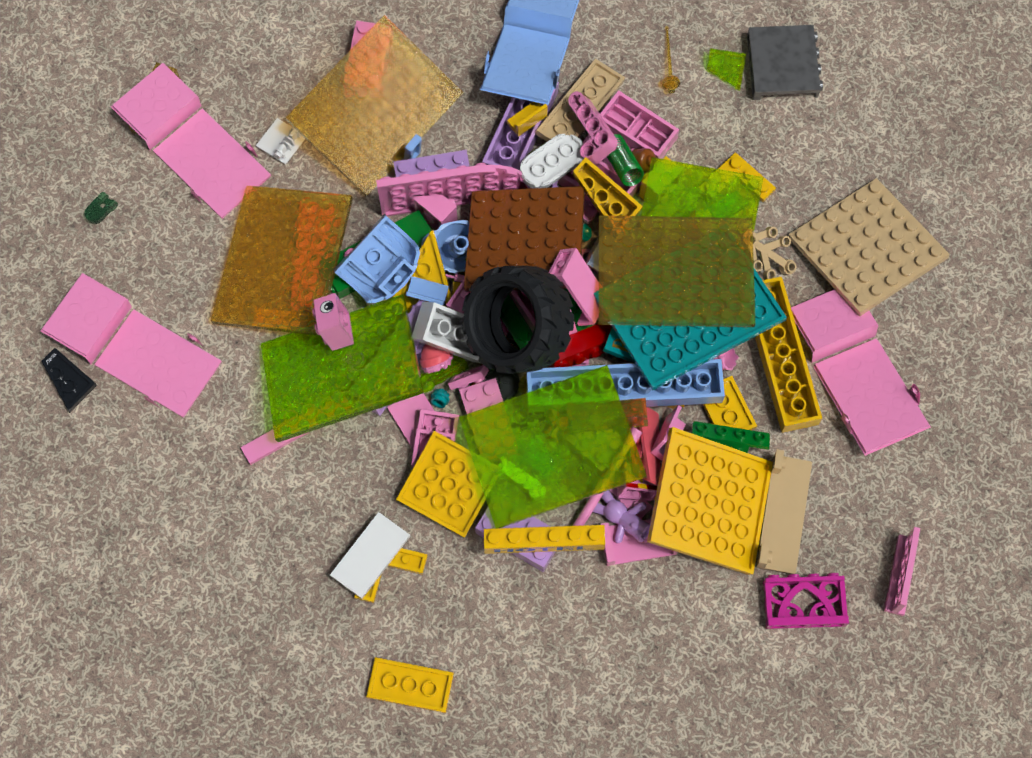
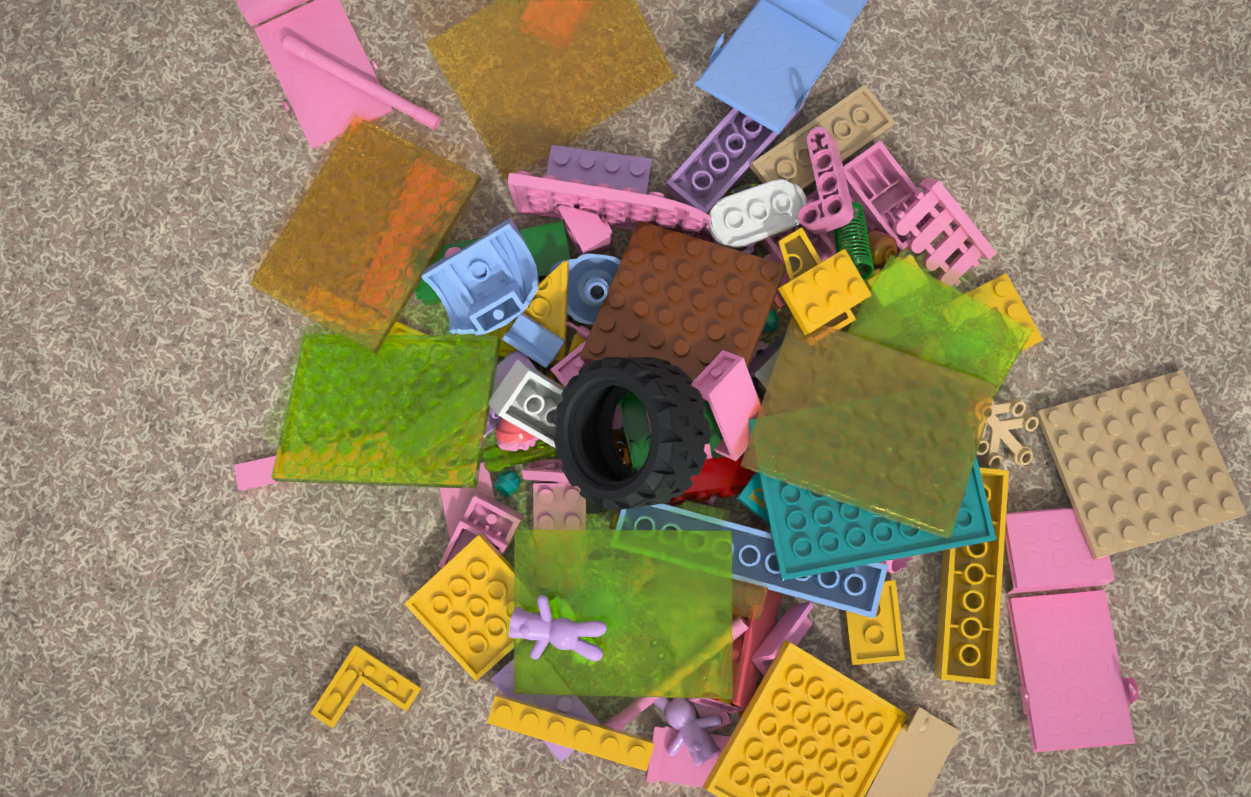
camera: 20 degrees right, 10 degrees up
(68, 379) = (50, 302): black wing -> none
(95, 213) = (154, 92): clear green plate -> none
(141, 351) = (150, 297): bright pink piece -> none
(195, 153) = (306, 52): none -> bright pink piece
(281, 141) = (417, 69): white hinge -> none
(333, 322) = (394, 346): bright pink brick -> none
(370, 555) = (346, 667): white tile -> none
(413, 148) = (582, 135): light blue tile -> none
(513, 470) = (561, 632): none -> lavender animal
(527, 117) = (745, 141): yellow panel -> none
(615, 193) = (824, 292): none -> yellow plate
(670, 82) = (954, 147): clear yellow sword -> none
(681, 124) = (948, 213): none -> bright pink fence
(727, 66) = (1036, 149): clear neon green slope -> none
(733, 437) = (864, 666): green bracket -> none
(784, 60) = (1115, 166): flat silver panel -> none

